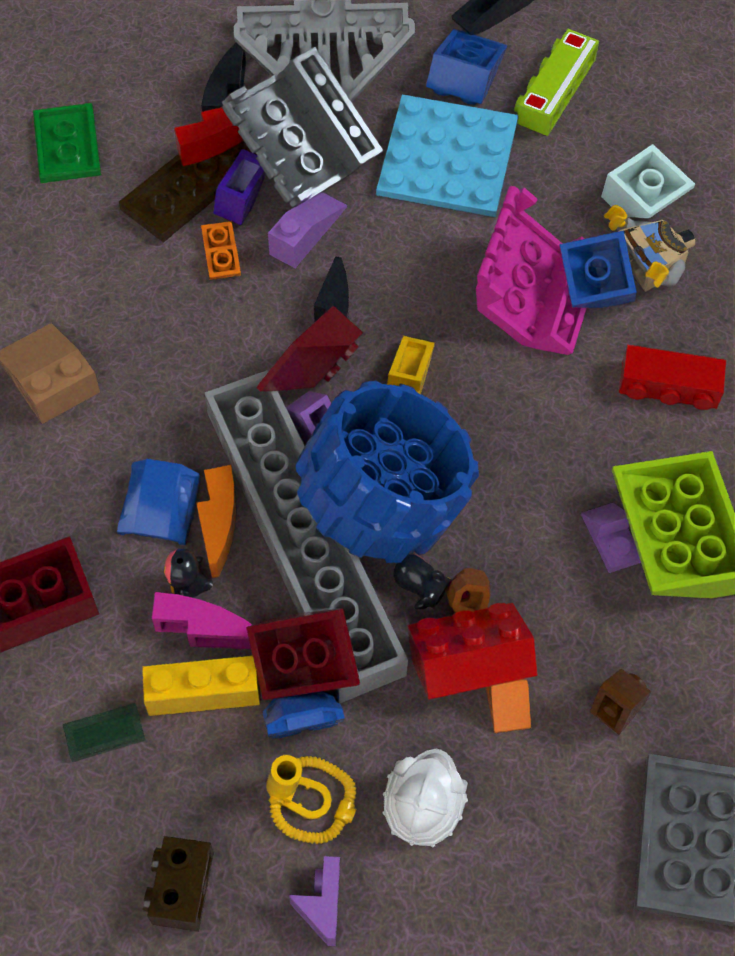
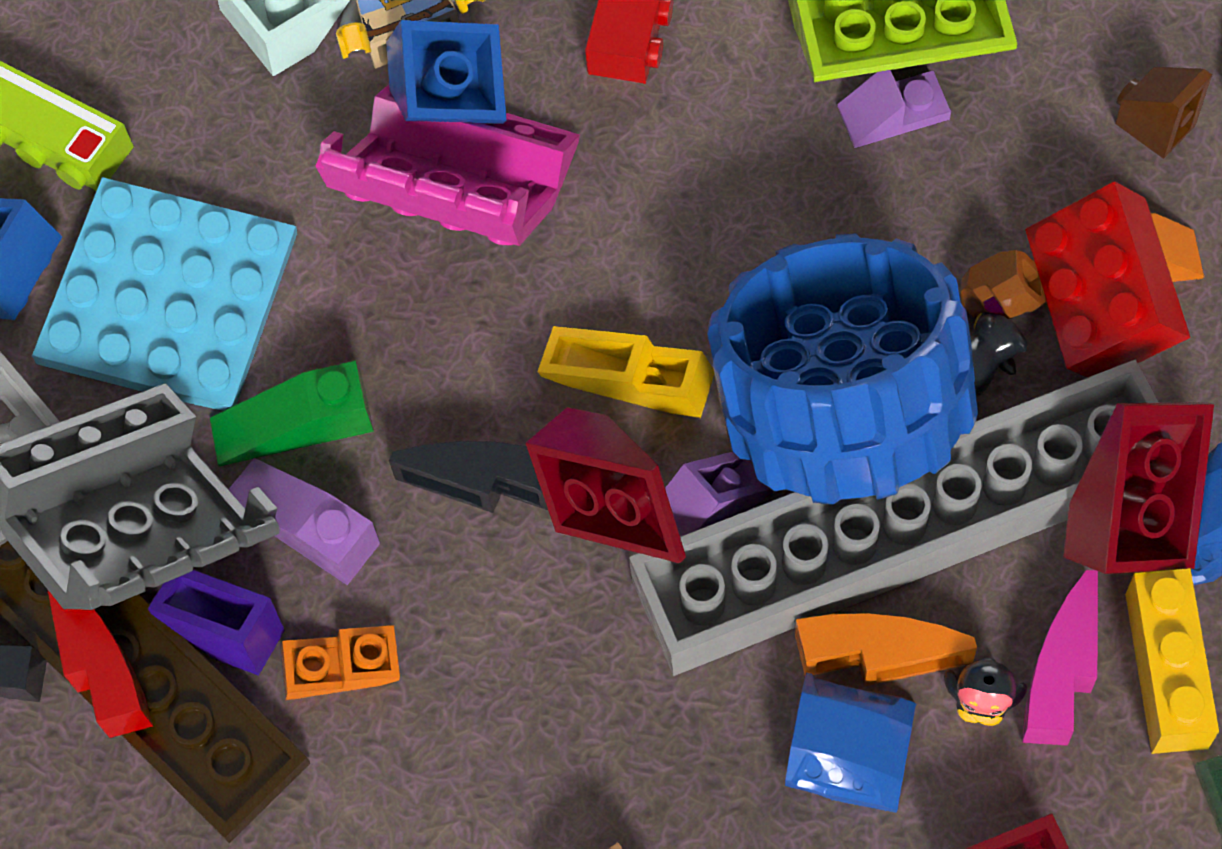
camera: 80 degrees left, 5 degrees up
(371, 222) = (294, 415): none -> green slope

